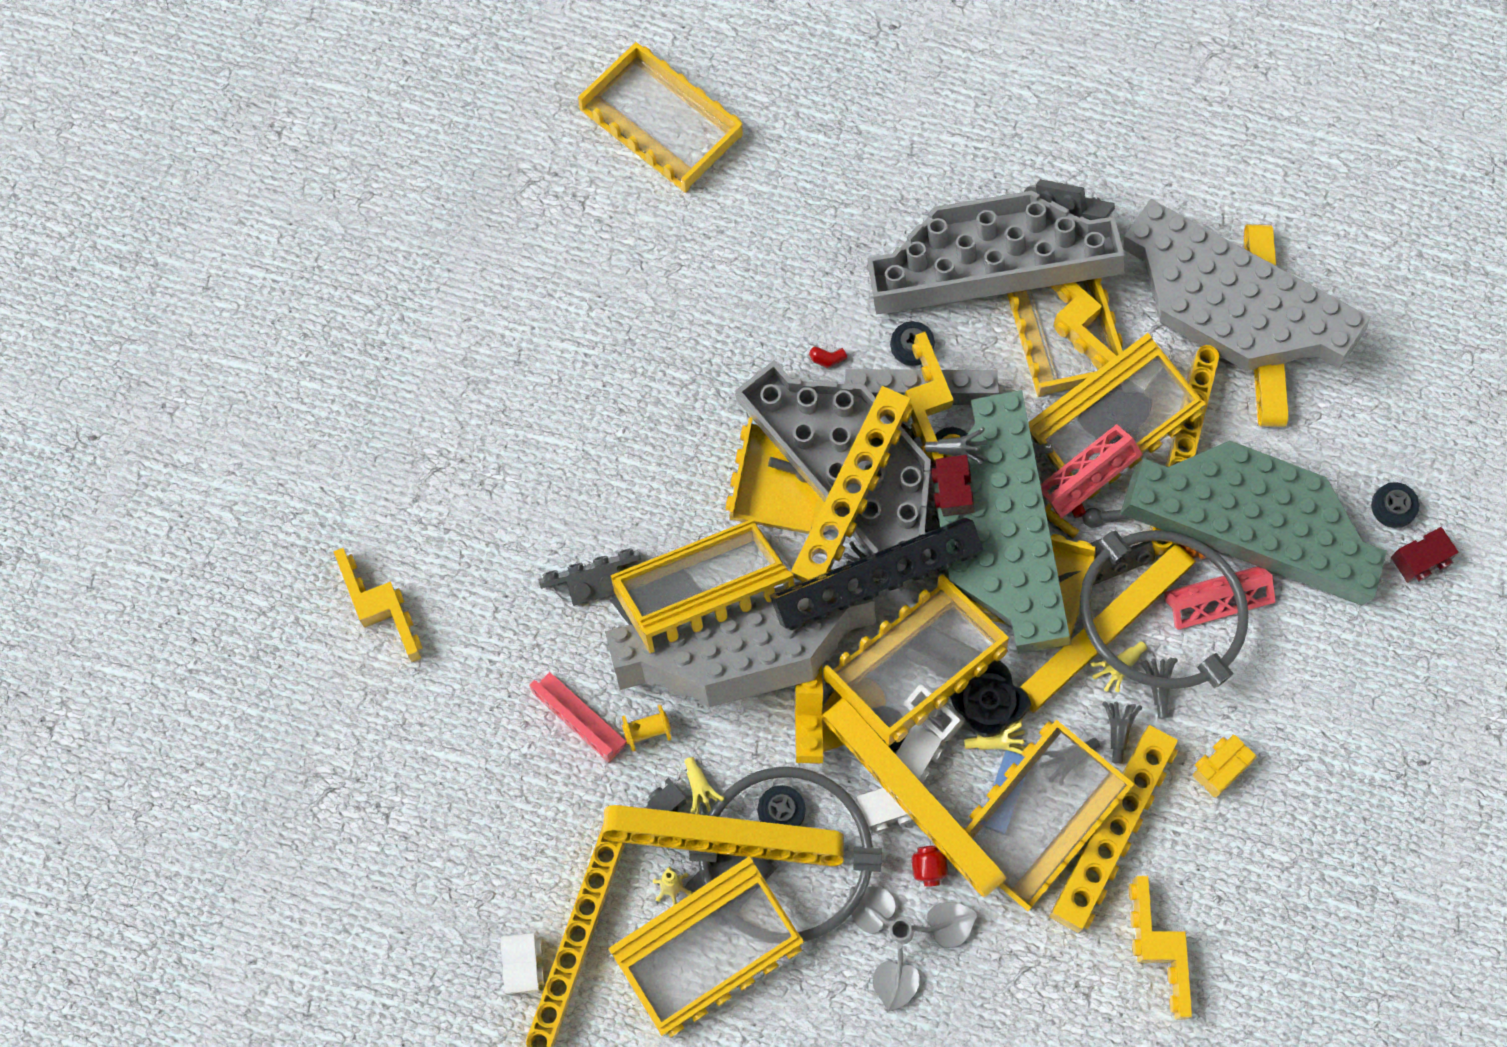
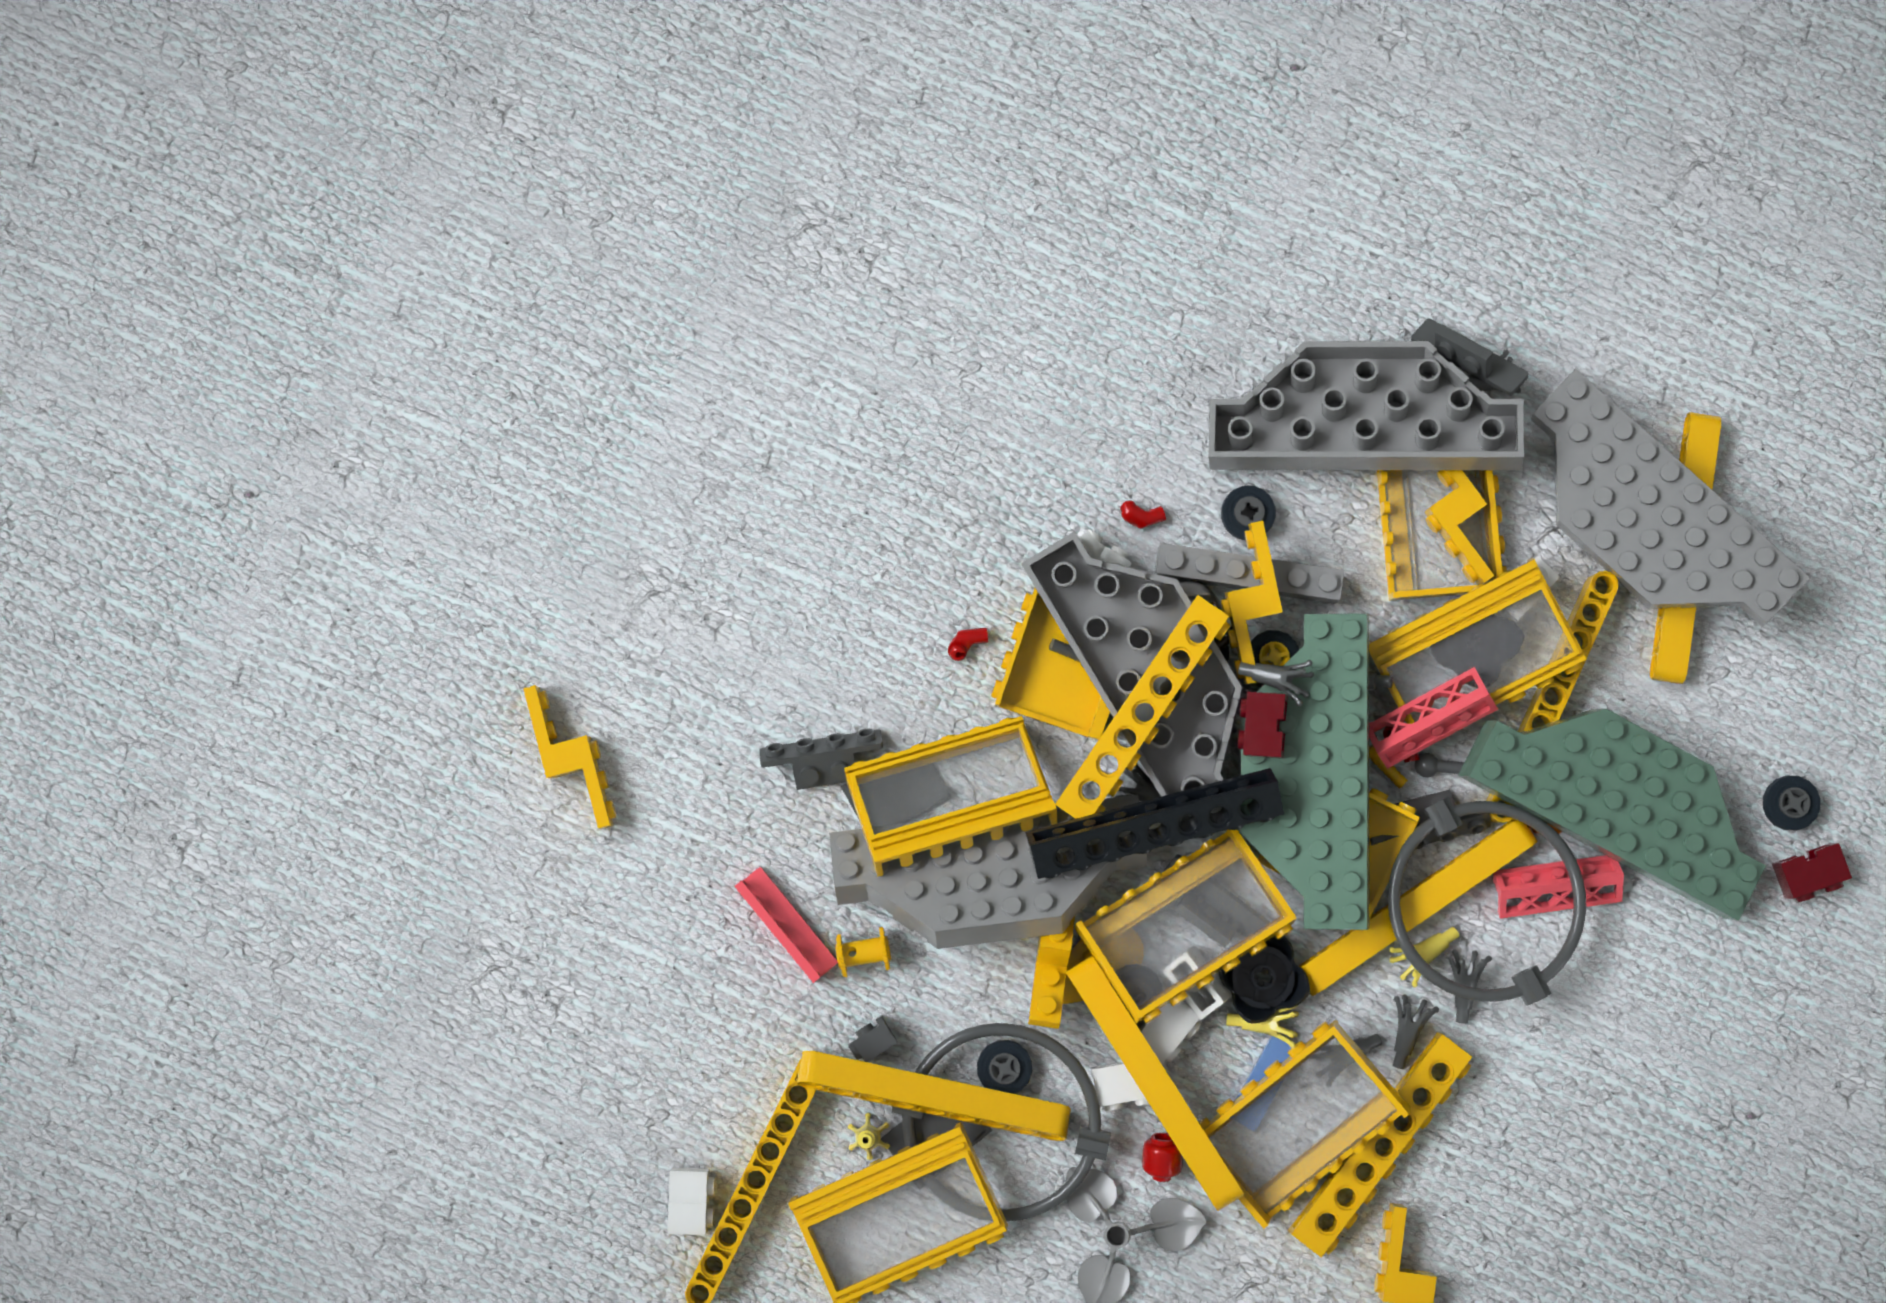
camera: 10 degrees right, 15 degrees up
(660, 116) = (982, 159): clear window -> none
(697, 470) = (964, 640): none -> red arm
(701, 789) = (915, 1029): light yellow piece -> none
(1224, 765) = (1520, 1089): yellow brick -> none

